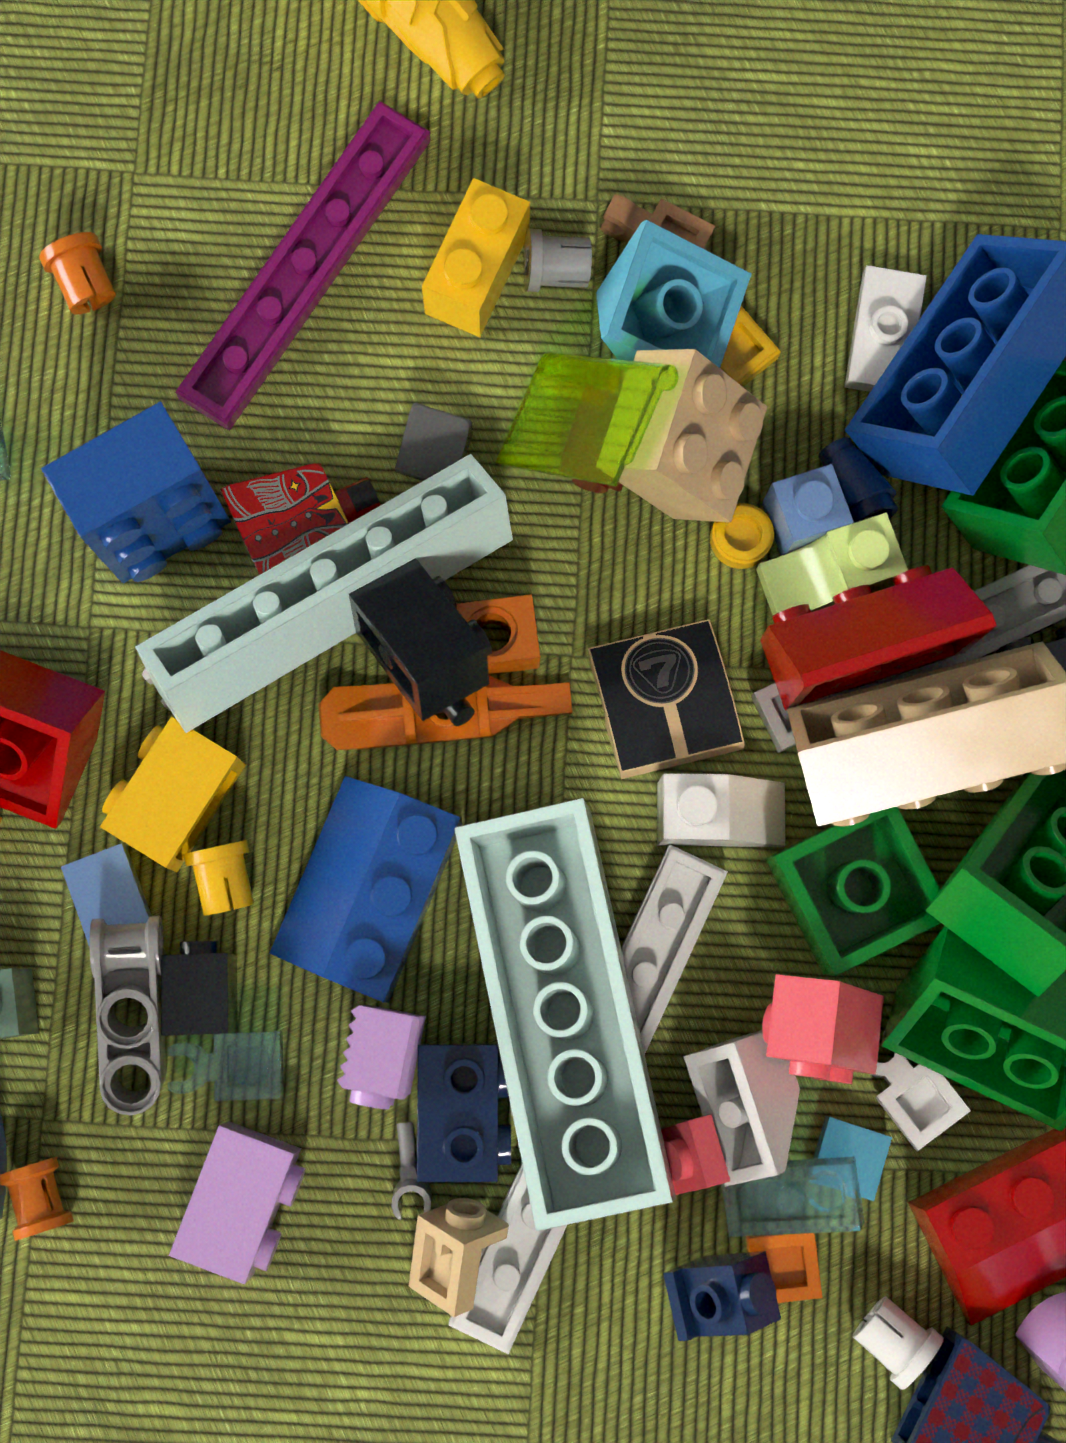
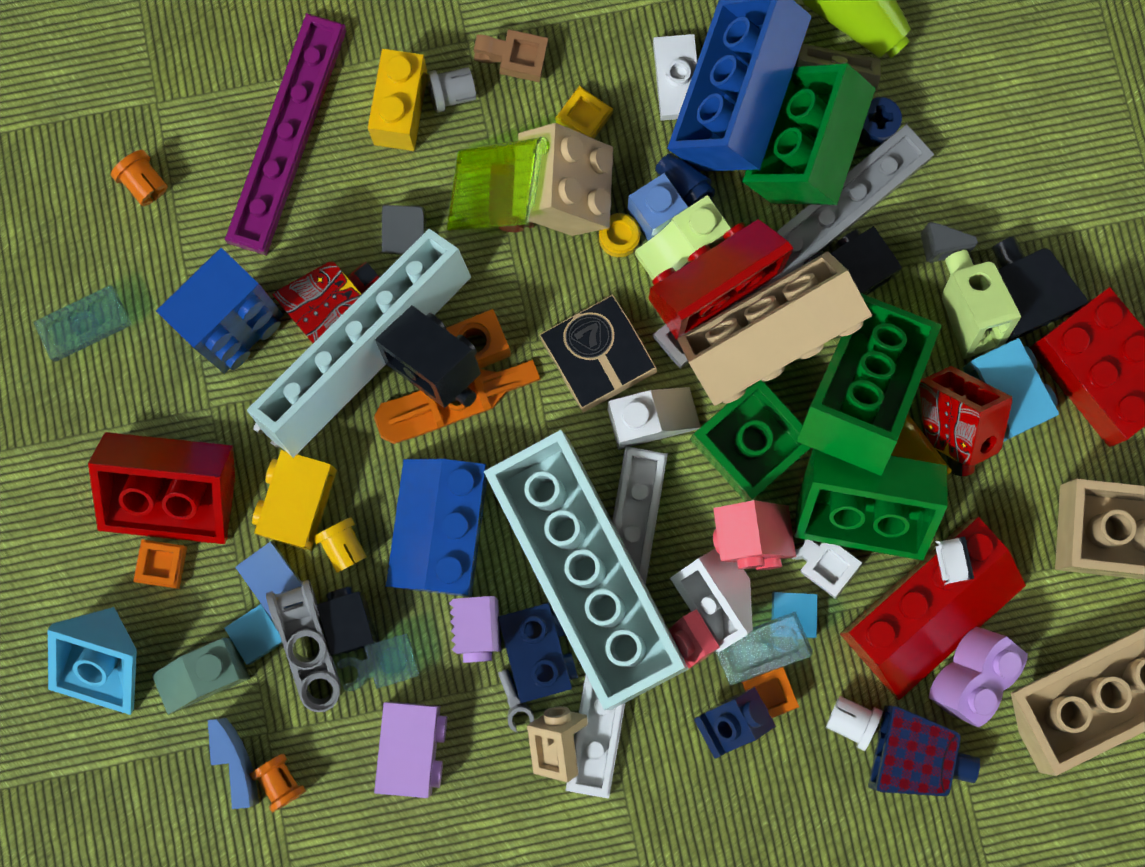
camera: 10 degrees left, 0 degrees up
(60, 972) = (254, 634): none -> medium azure tile
(669, 297) = (530, 92): medium azure slope -> none

